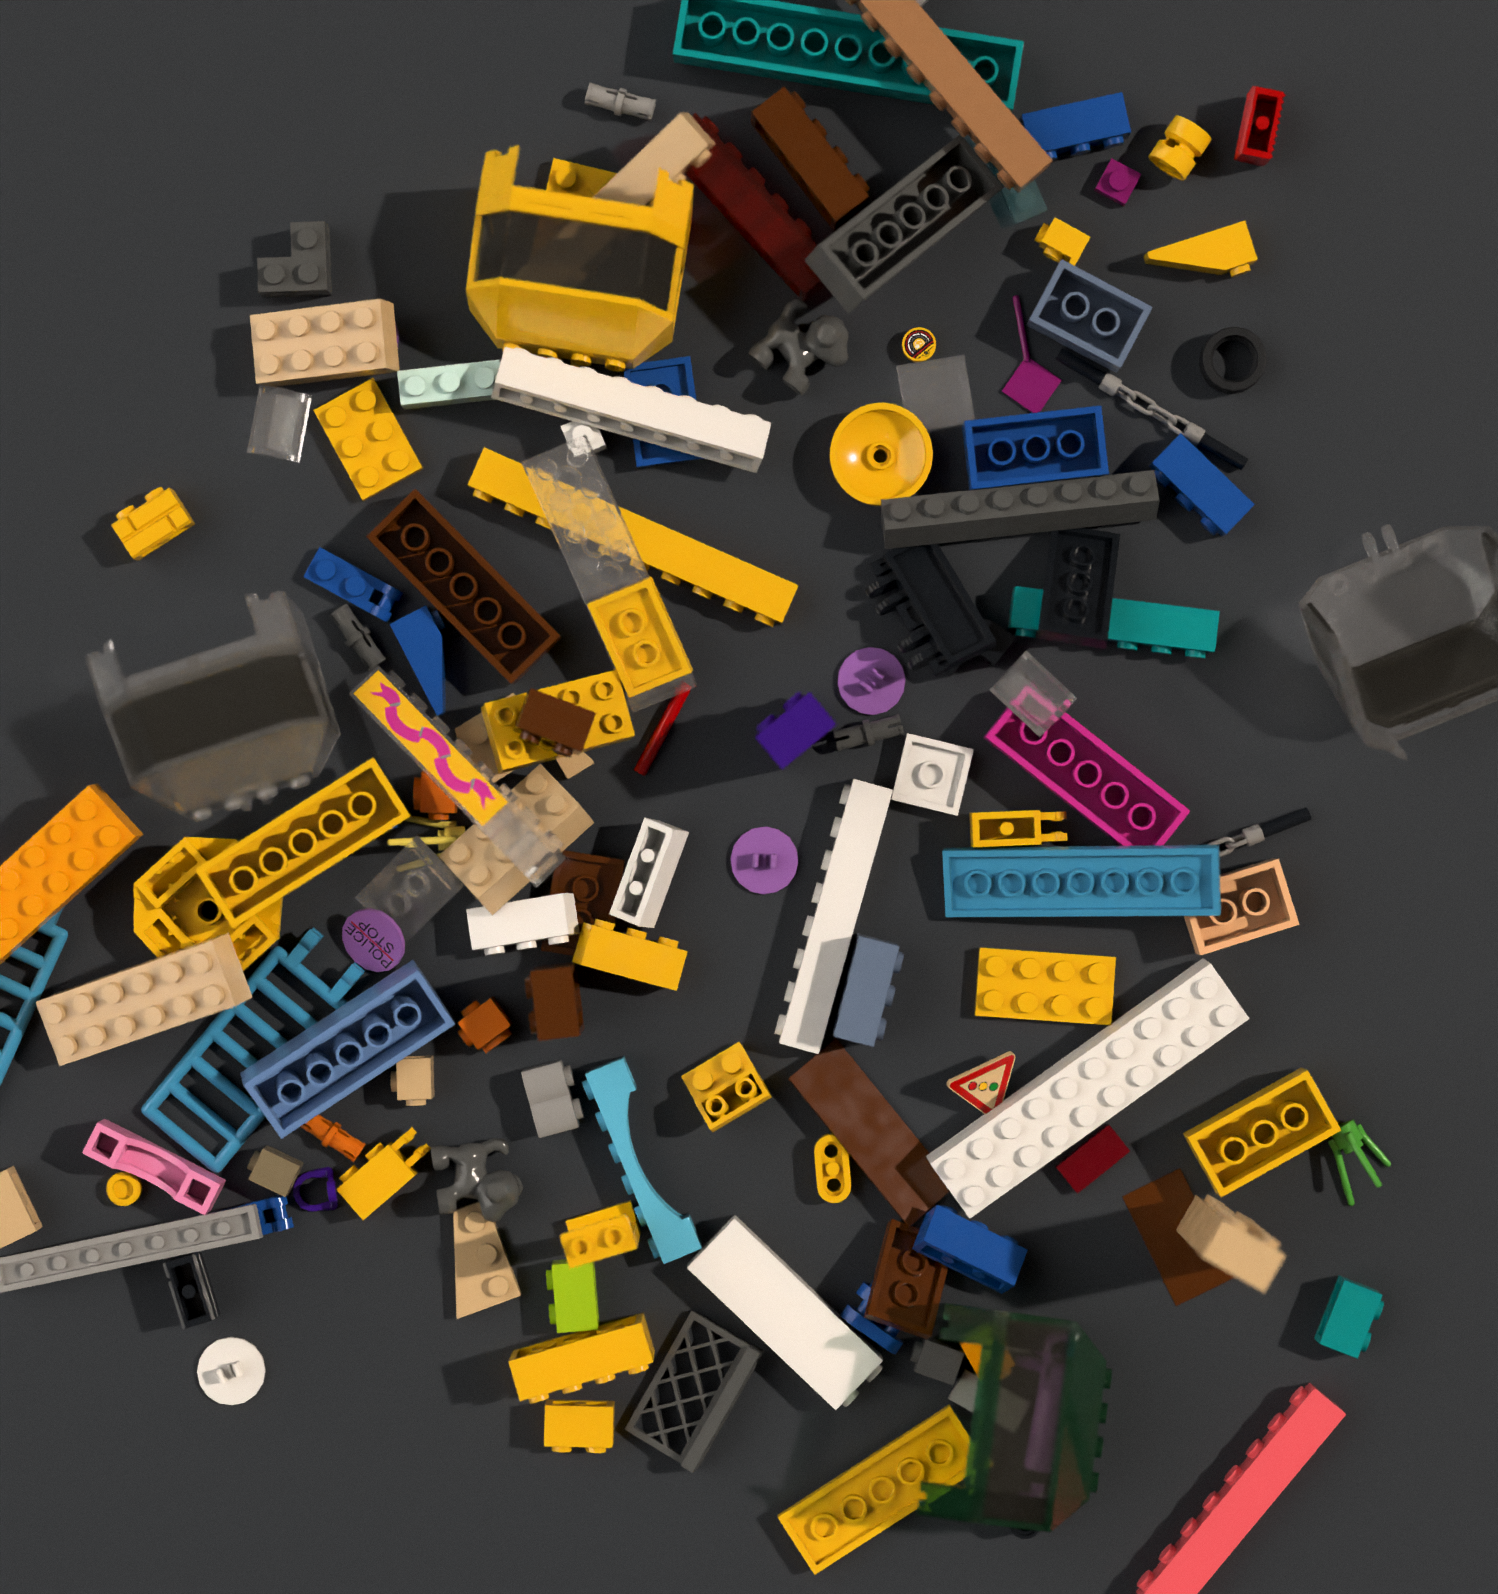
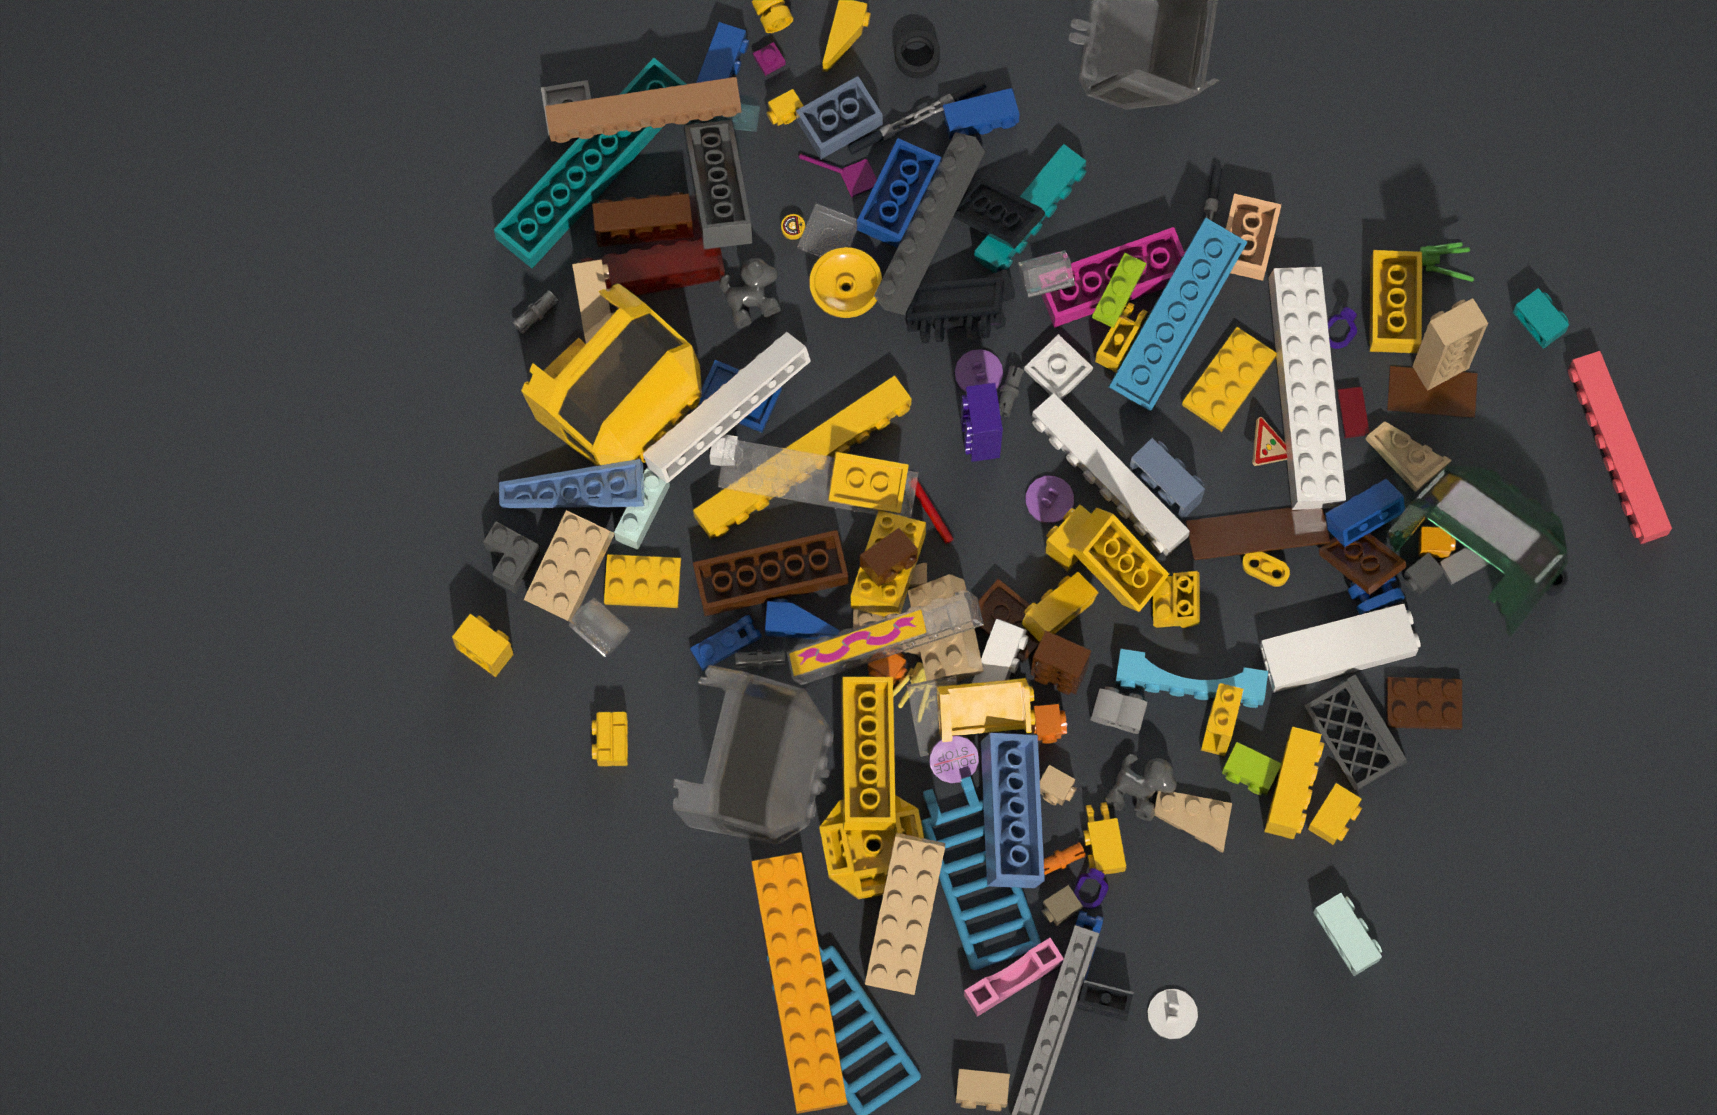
camera: 55 degrees left, 15 degrees down
(124, 1188) = (1015, 1010): yellow tile -> none
(167, 301) = (483, 645): none -> yellow brick
(436, 309) = (596, 486): none -> medium blue wing
(445, 1522) = (1348, 933): none -> light aqua brick
(448, 943) = (984, 708): none -> yellow panel
(649, 873) = (1015, 567): white brick -> none
(723, 993) = (1117, 559): none -> yellow brick
(725, 920) = (1060, 536): none -> yellow brick
(781, 1449) = (1424, 703): none -> reddish brown plate
(877, 1490) = (1484, 659): yellow plate -> none
(1066, 793) = (1119, 290): none -> lime plate
(1074, 1257) = (1408, 458): none -> tan wing
(1207, 1089) = (1349, 315): none -> dark purple piece

